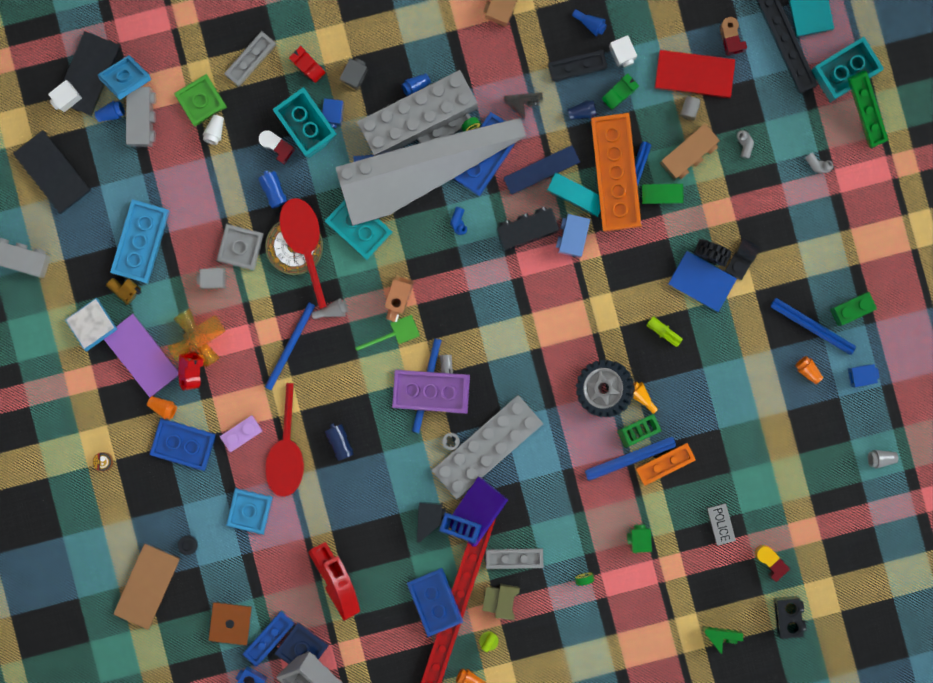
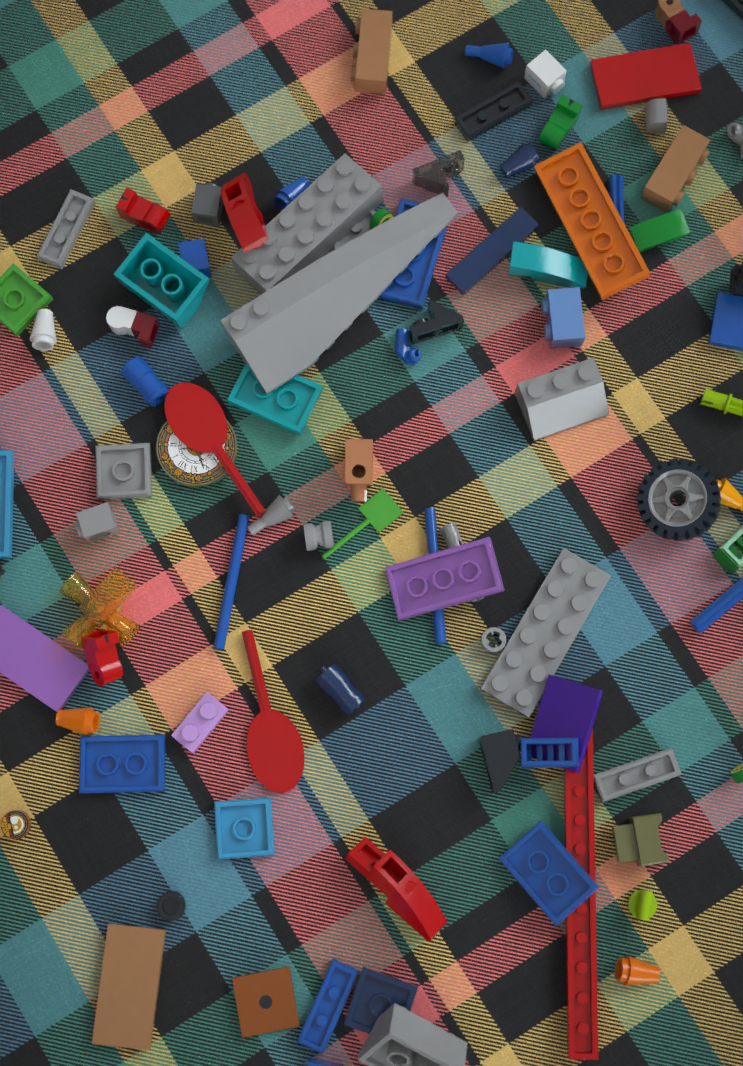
camera: 15 degrees left, 10 degrees down
(359, 334) = (318, 535): none -> light grey wheel
(374, 92) = (244, 213): none -> red slope
(490, 211) = (442, 322): none -> black slope
(527, 229) = (501, 325): black brick -> none
(552, 293) = (562, 399): none -> light grey slope

